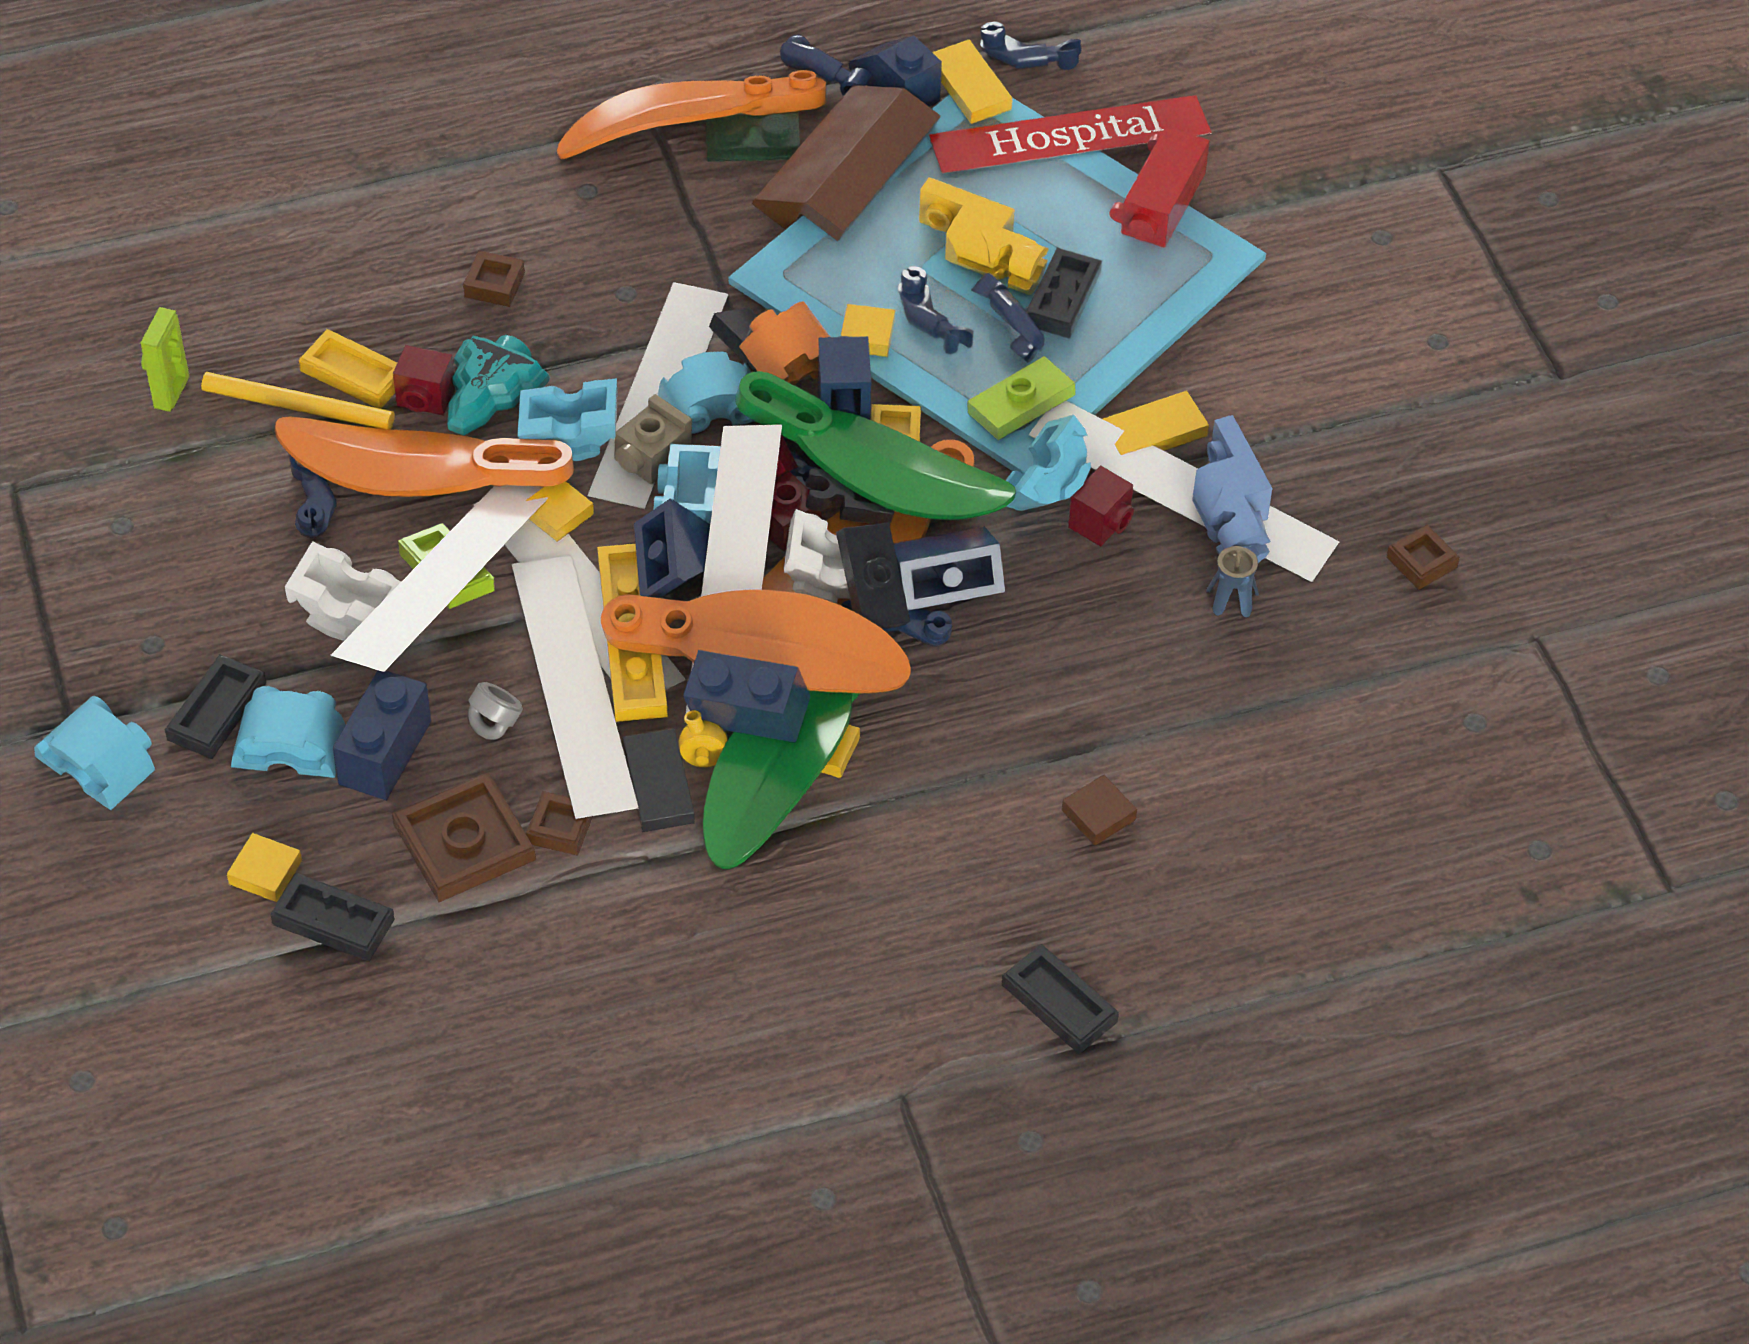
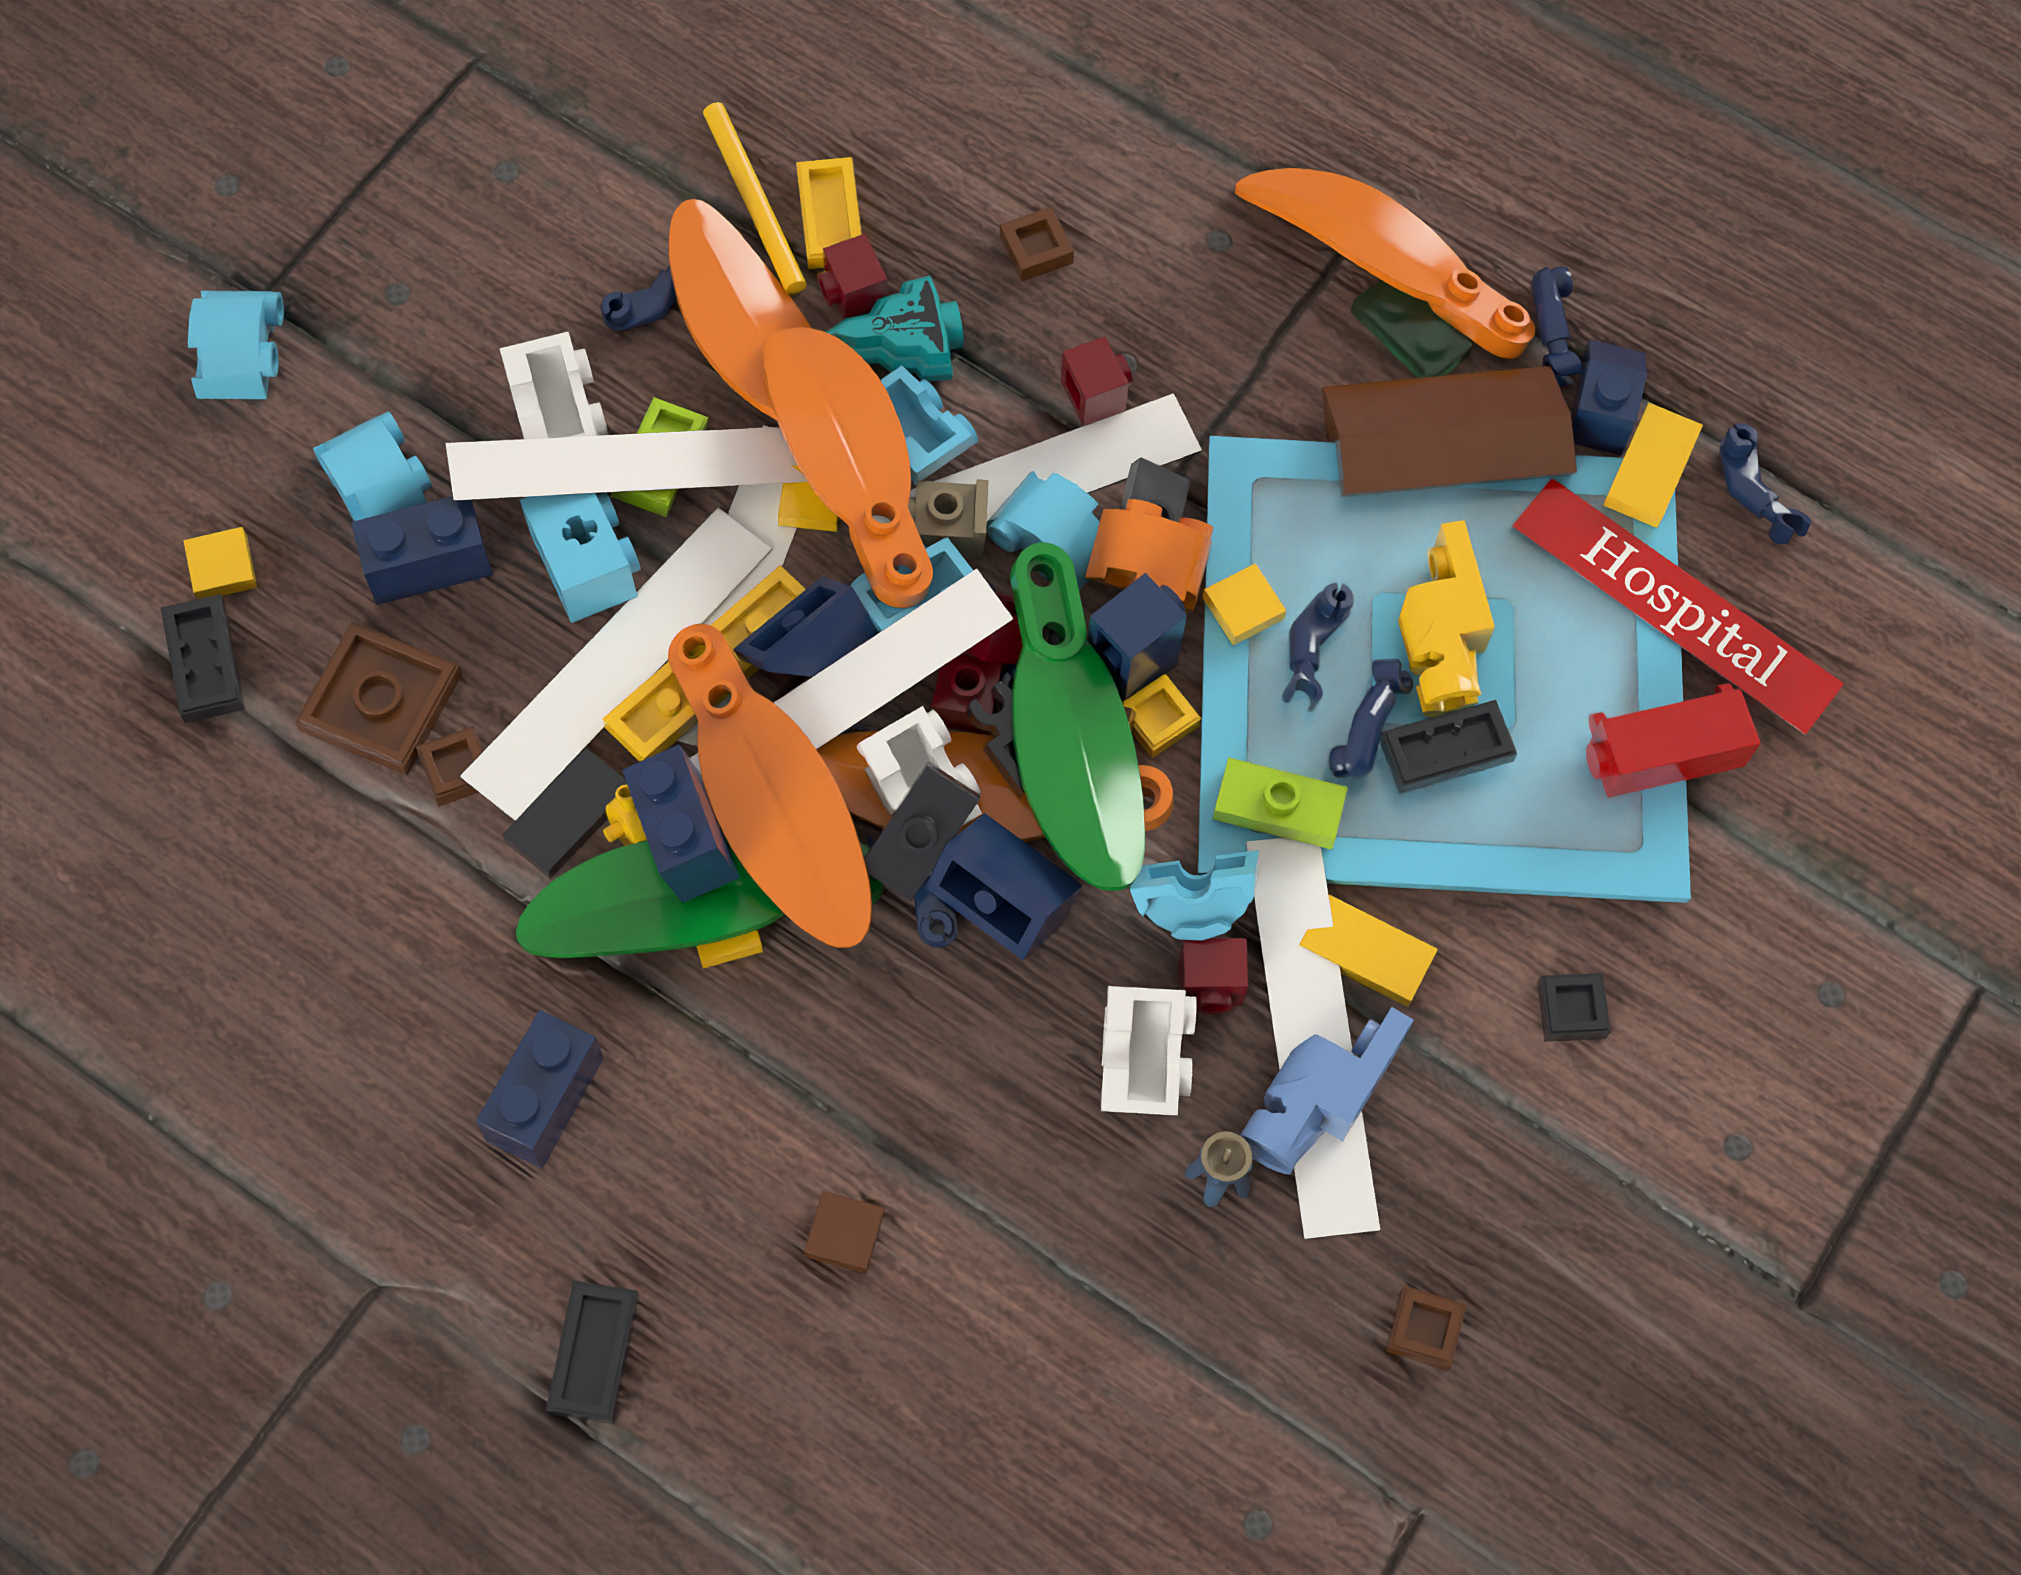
camera: 50 degrees right, 15 degrees up
(164, 359) = (681, 60): lime plate -> none
(214, 706) = (361, 391): black tile -> none
(475, 647) = (582, 551): none -> medium azure brick
(495, 705) = (532, 616): light grey tile -> none
(566, 444) = (850, 453): none -> orange plant
(631, 307) = (1095, 380): none -> dark red plate
(853, 905) = (540, 1089): none -> dark blue brick
(1117, 571) = (1144, 1050): none -> white cylinder
(1282, 355) = (1573, 1007): none -> black tile

